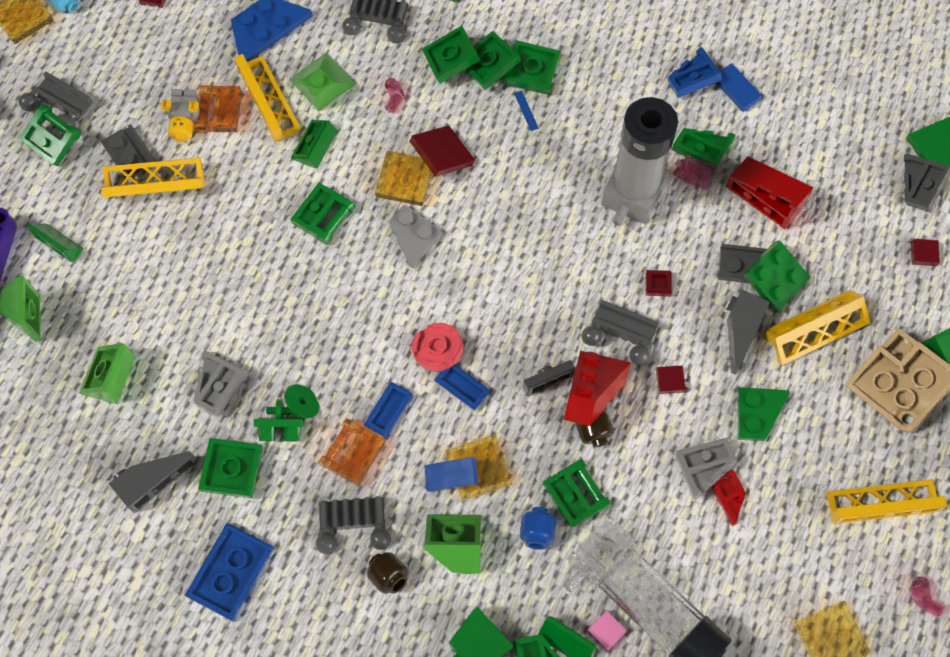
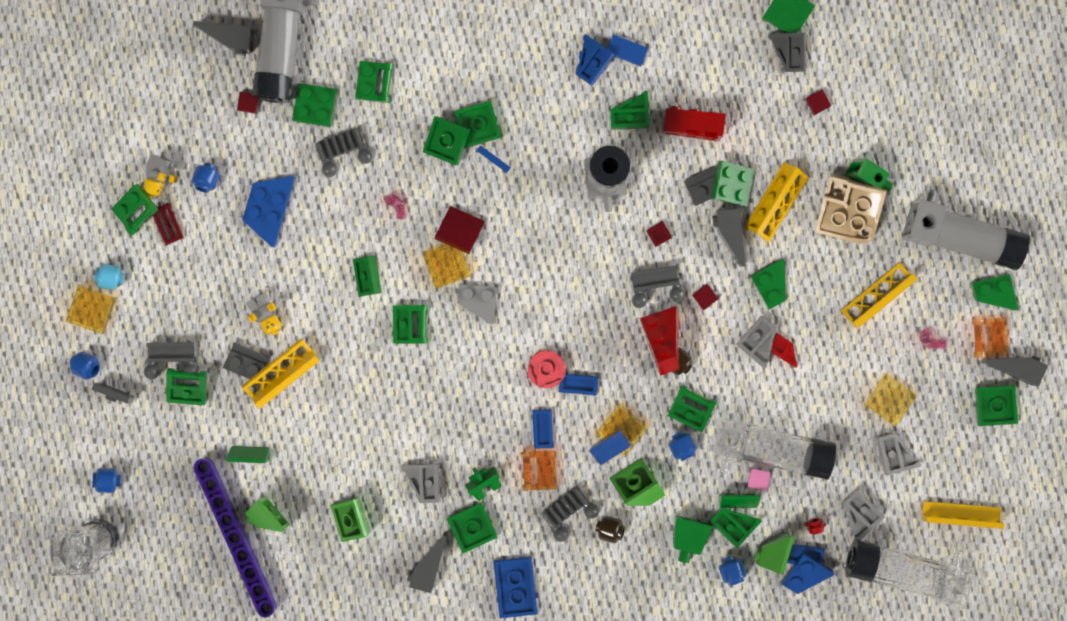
camera: 30 degrees left, 20 degrees up
(225, 109) = (290, 291): clear orange plate -> none
(260, 98) = (287, 256): yellow fence -> none
(301, 401) = (486, 459): green piece -> none
(322, 81) = (339, 225): bright green slope -> none
(451, 54) = (417, 152): green plate -> none
(548, 377) = (628, 345): dark grey plate -> none
(695, 172) = (638, 138): clear pink bracket -> none

